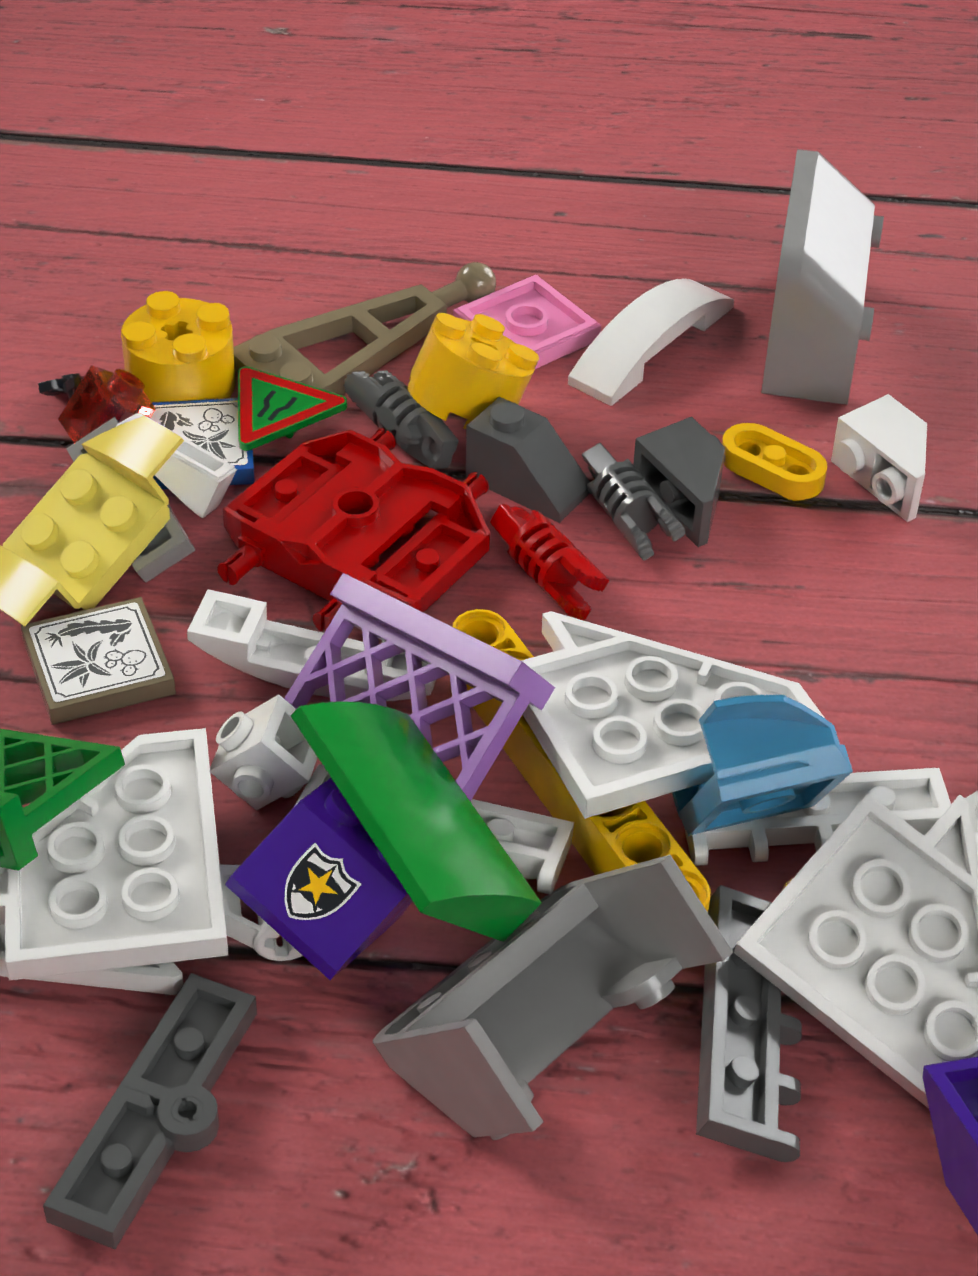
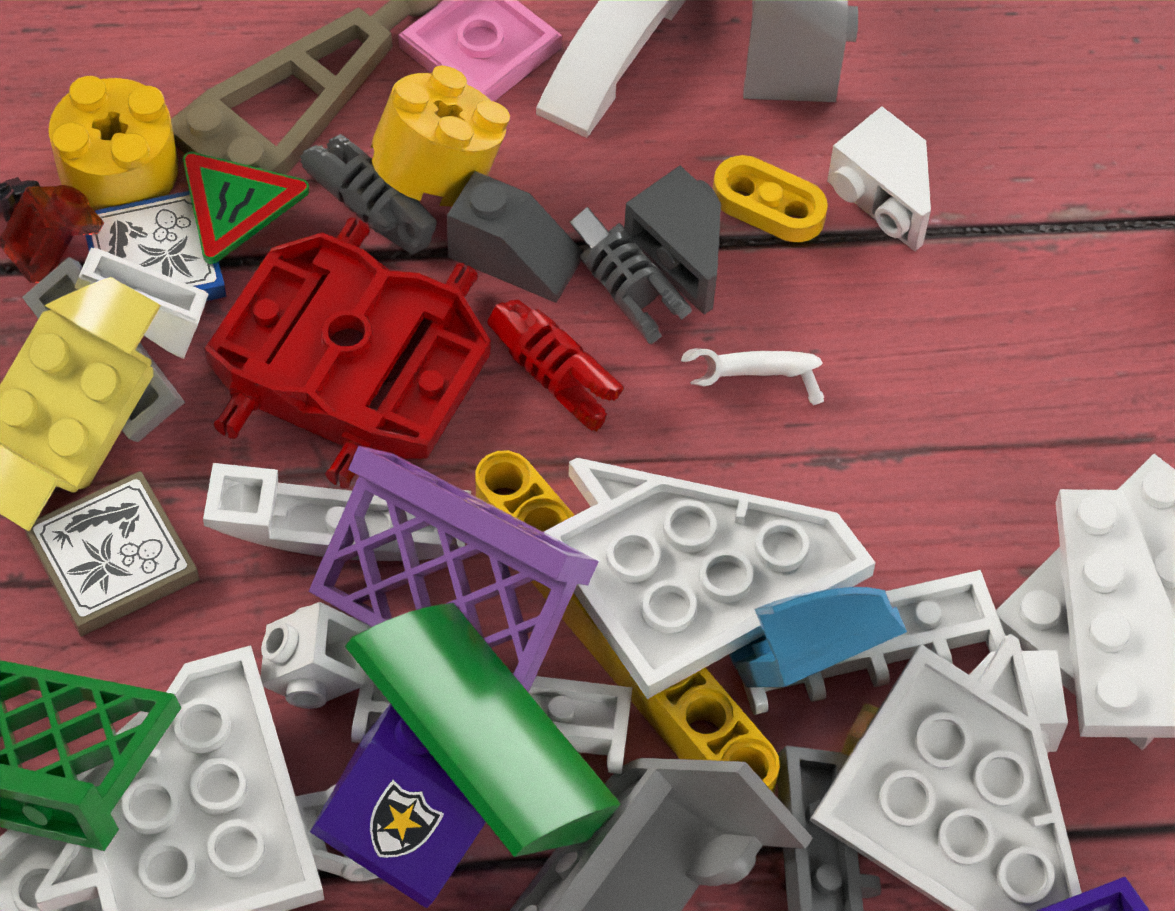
camera: 10 degrees left, 15 degrees up
(742, 586) = (760, 364): none -> white piece

